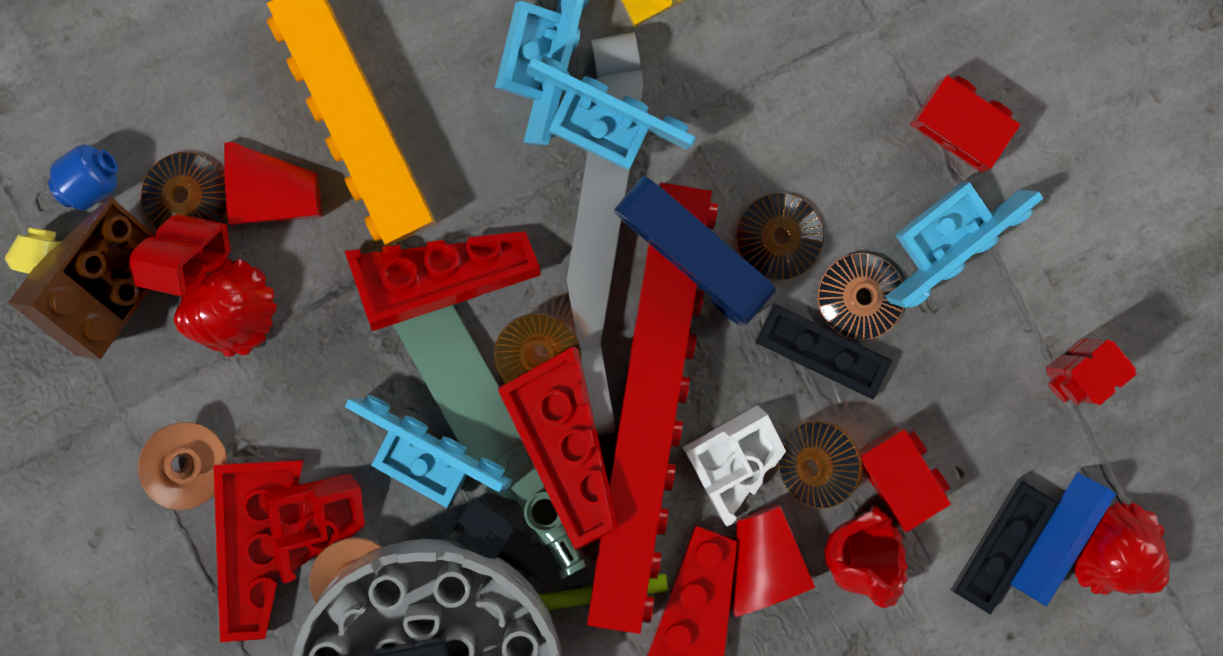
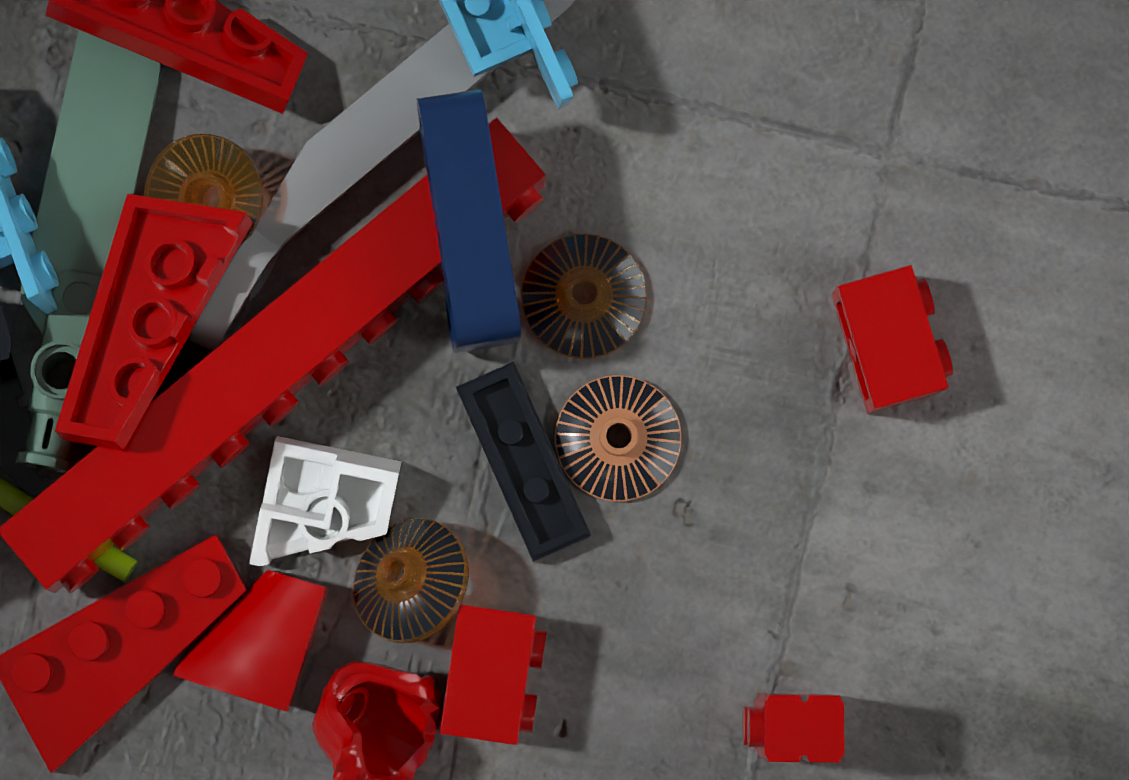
camera: 35 degrees right, 5 degrees down
(951, 234) = (773, 445): medium azure bracket -> none

